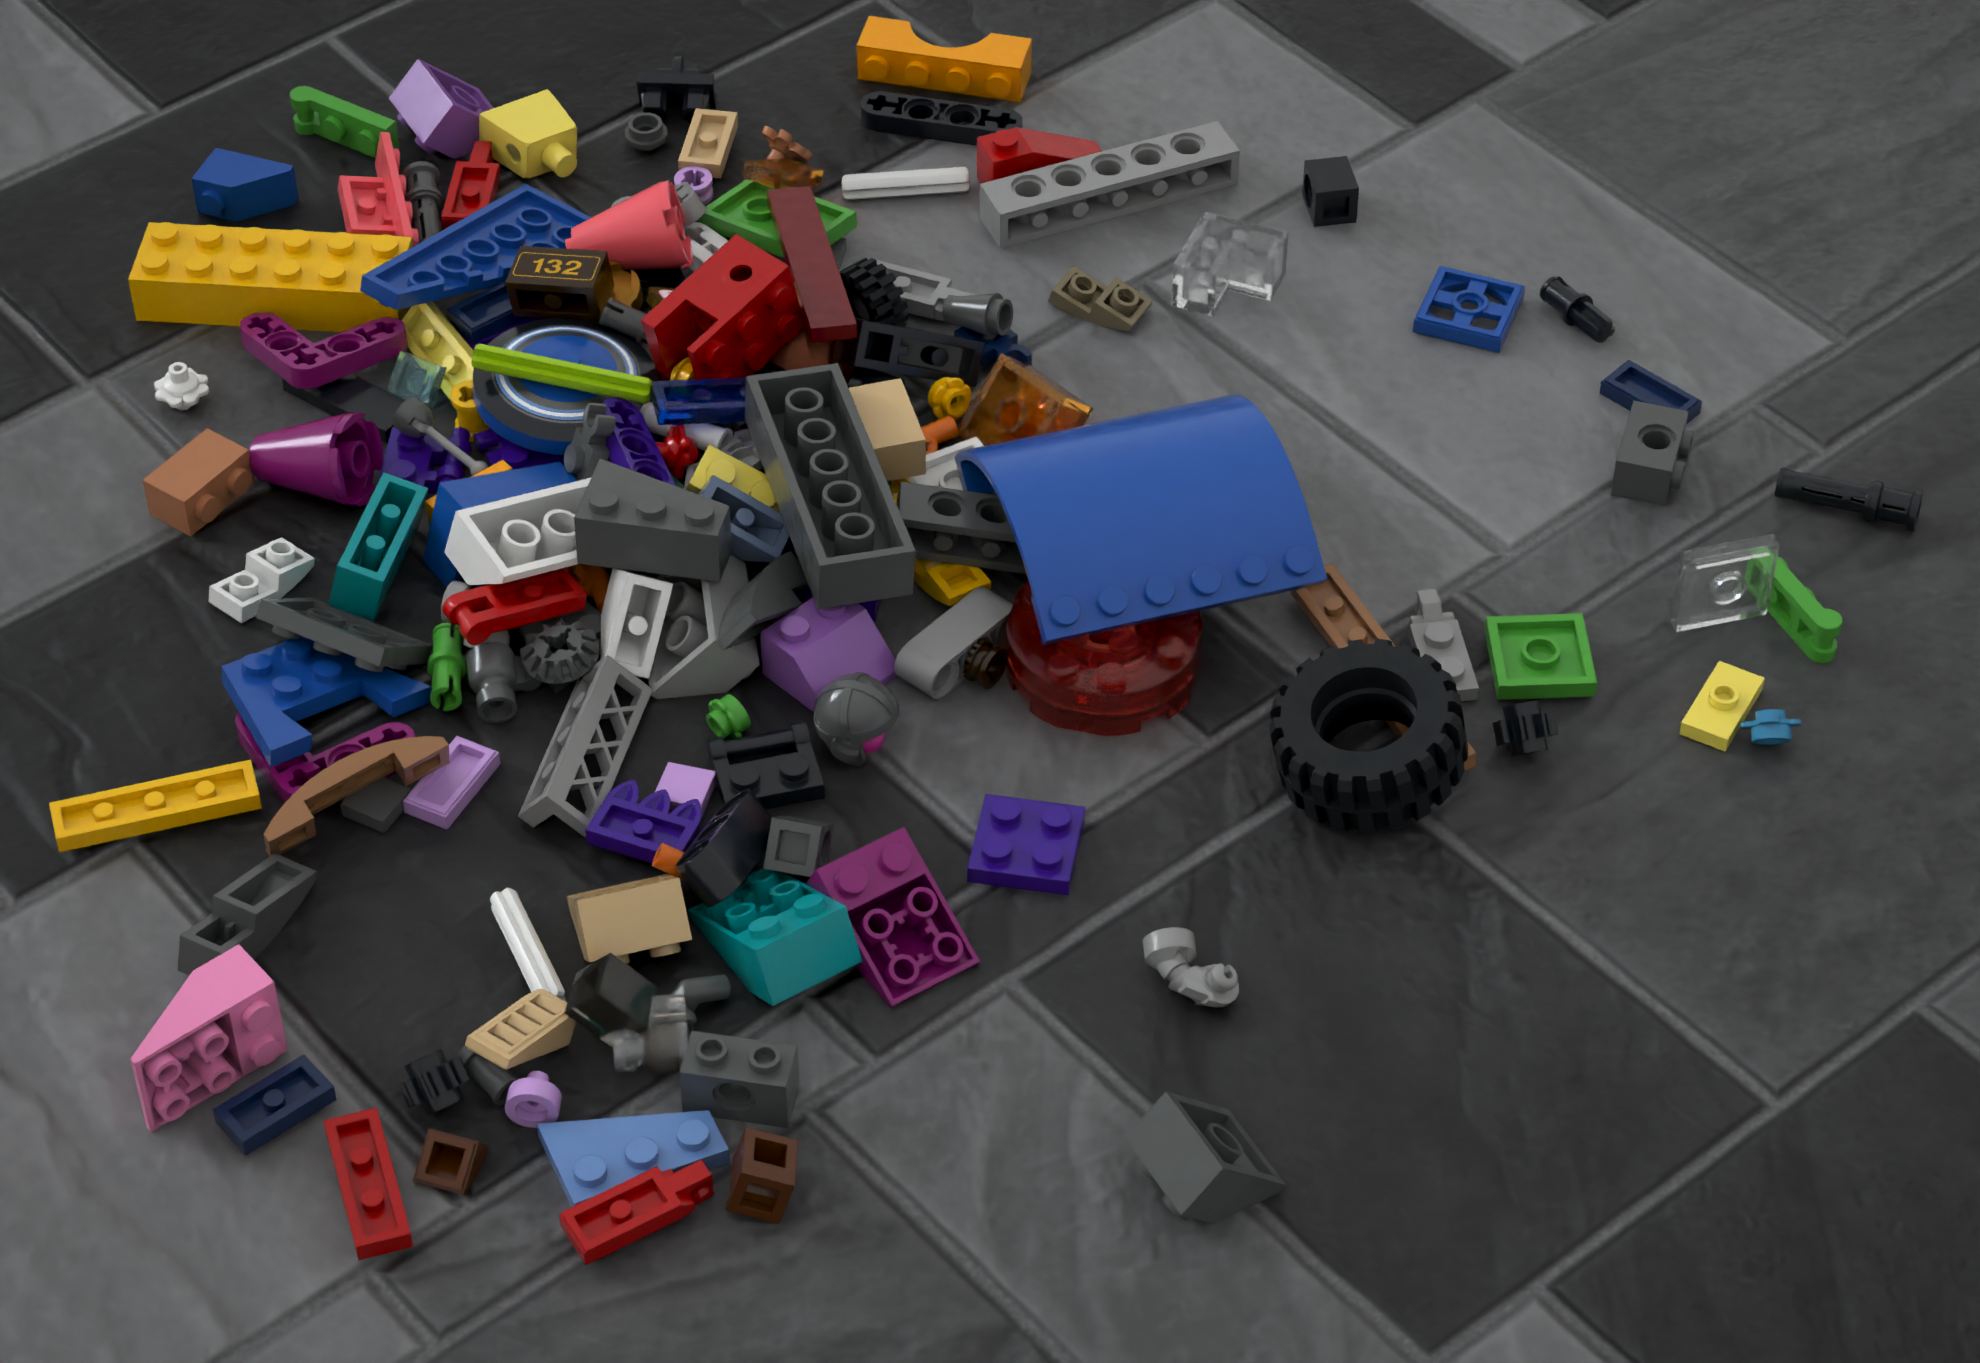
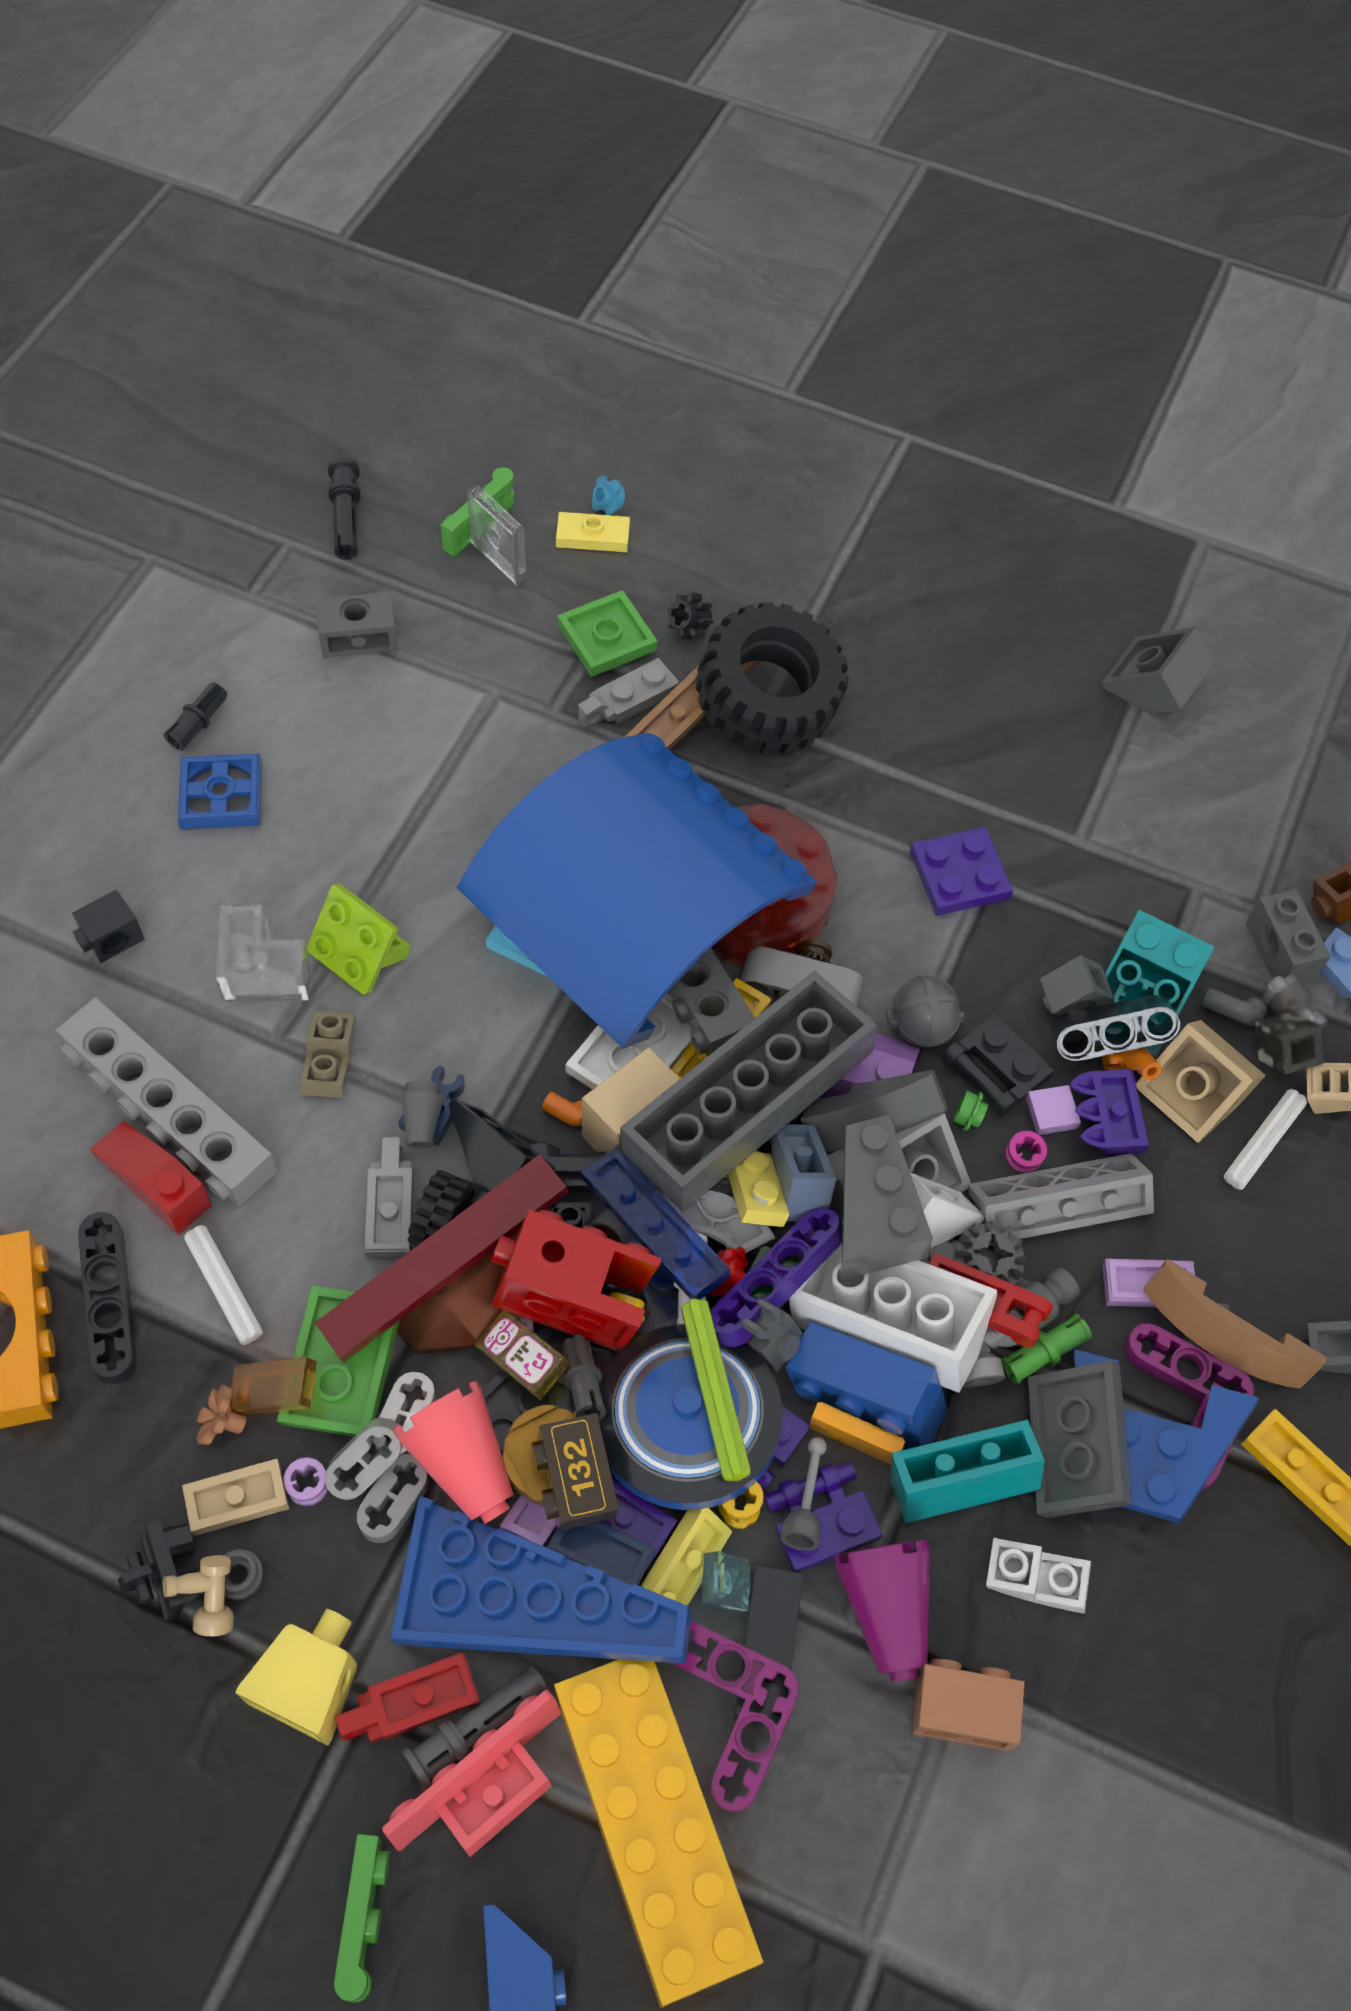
camera: 120 degrees left, 15 degrees up
(181, 387) = (850, 1821): white plant -> none
(439, 110) = (295, 1803): medium lavender slope -> none
(619, 108) = (214, 1616): none -> tan piece
(657, 759) = (1035, 1142): none -> dark pink bush
(897, 917) = (1087, 915): magenta slope -> none
(943, 392) = (521, 1109): yellow plate -> none
(1020, 404) = (520, 1041): clear orange slope -> none
(1171, 953) = (1011, 743): light grey arm -> none
(1215, 342) = (355, 939): none -> lime bracket
(1638, 384) = (278, 650): dark blue tile -> none

